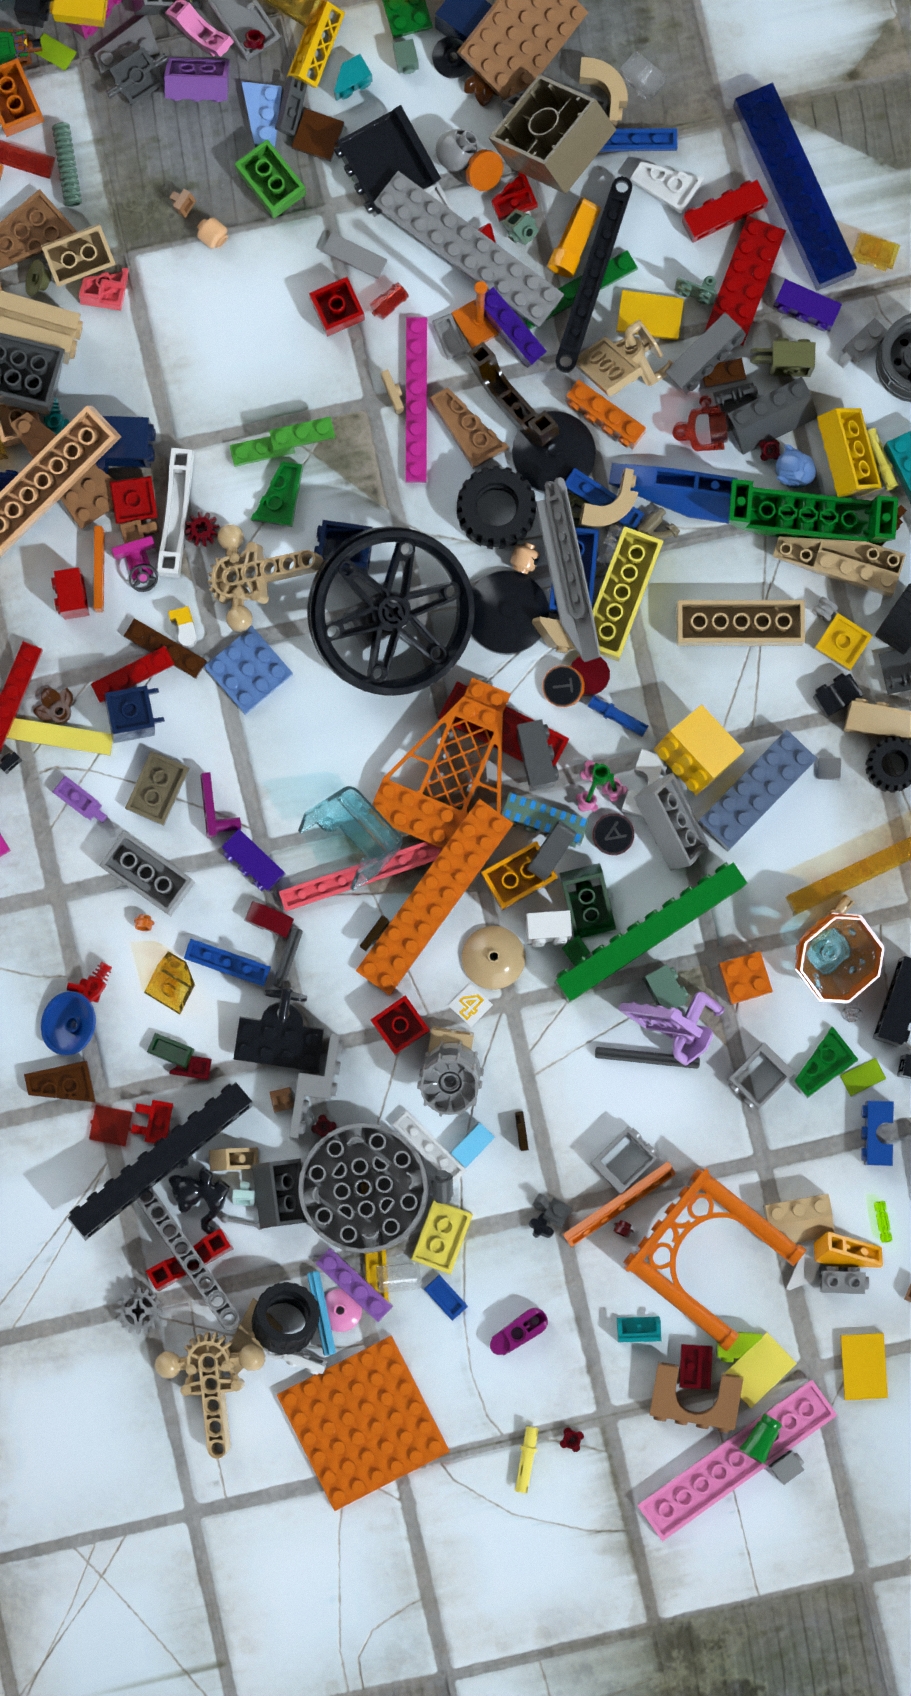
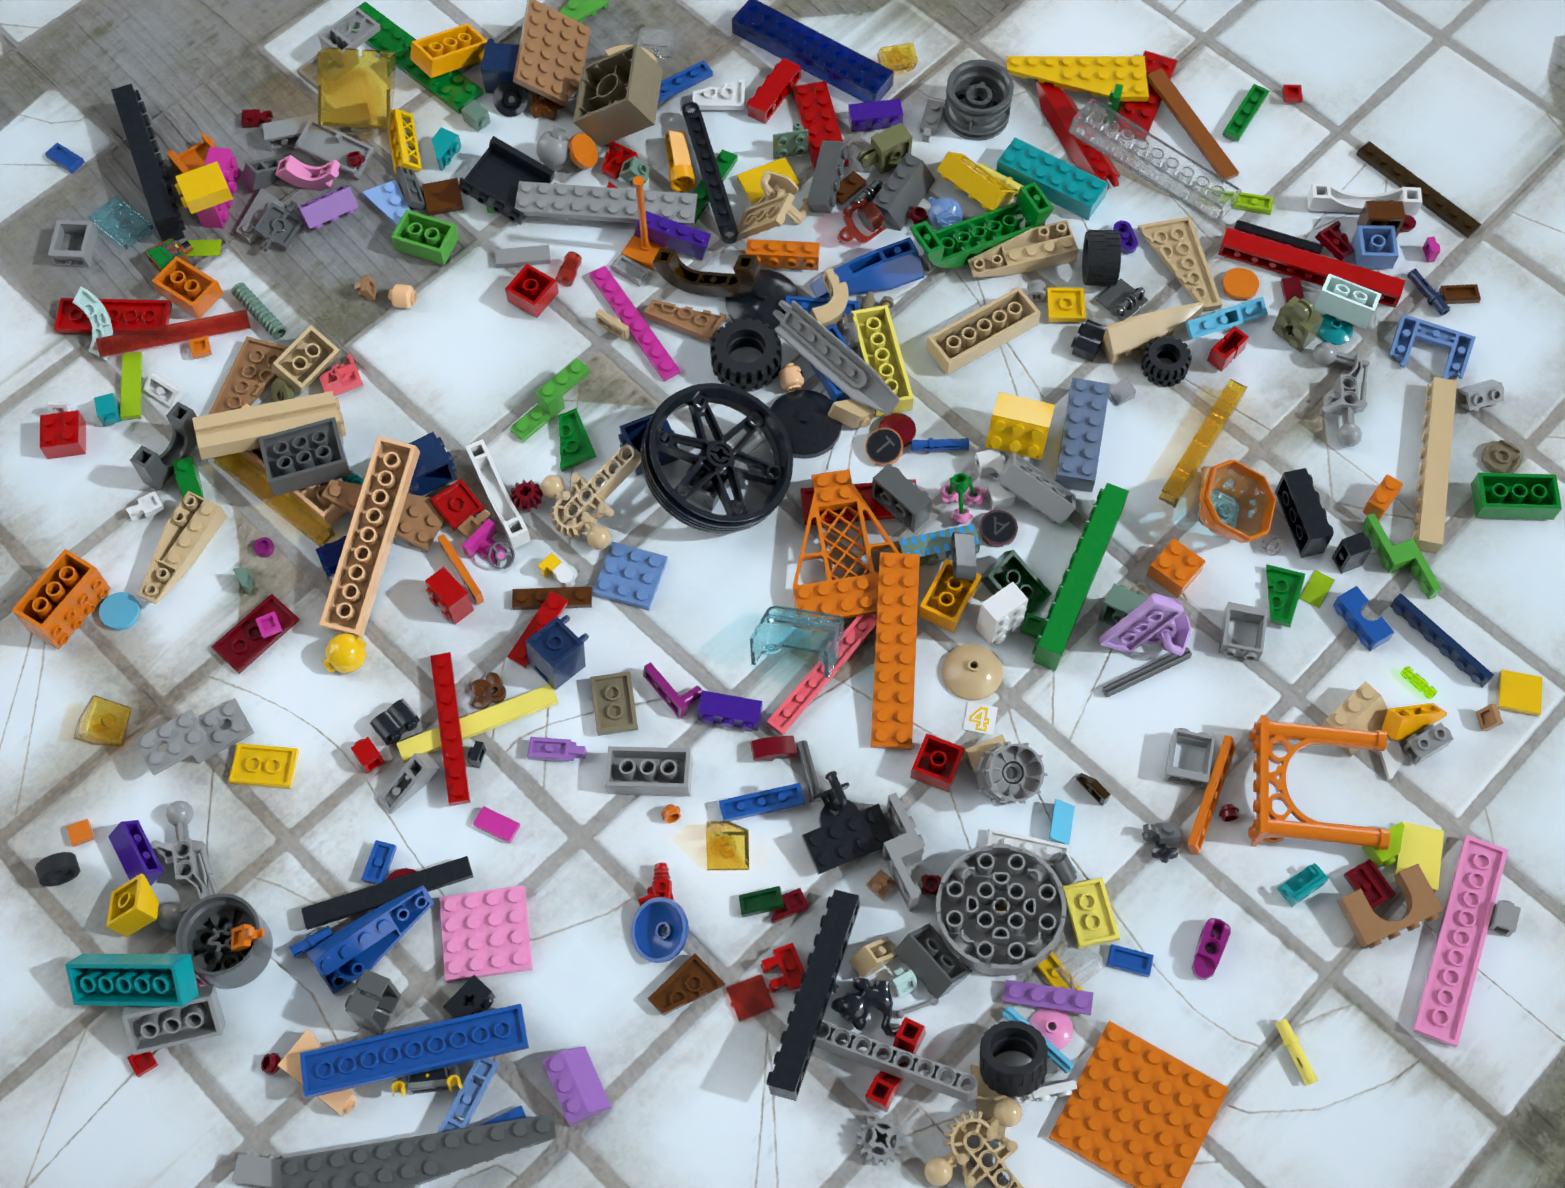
camera: 30 degrees left, 20 degrees down
(374, 933) = (866, 704): dark brown tile -> none
(566, 1443) = (1321, 1005): dark red plate -> none
(761, 1439) = (1469, 905): green plant -> none
(864, 1366) = (1495, 801): yellow tile -> none

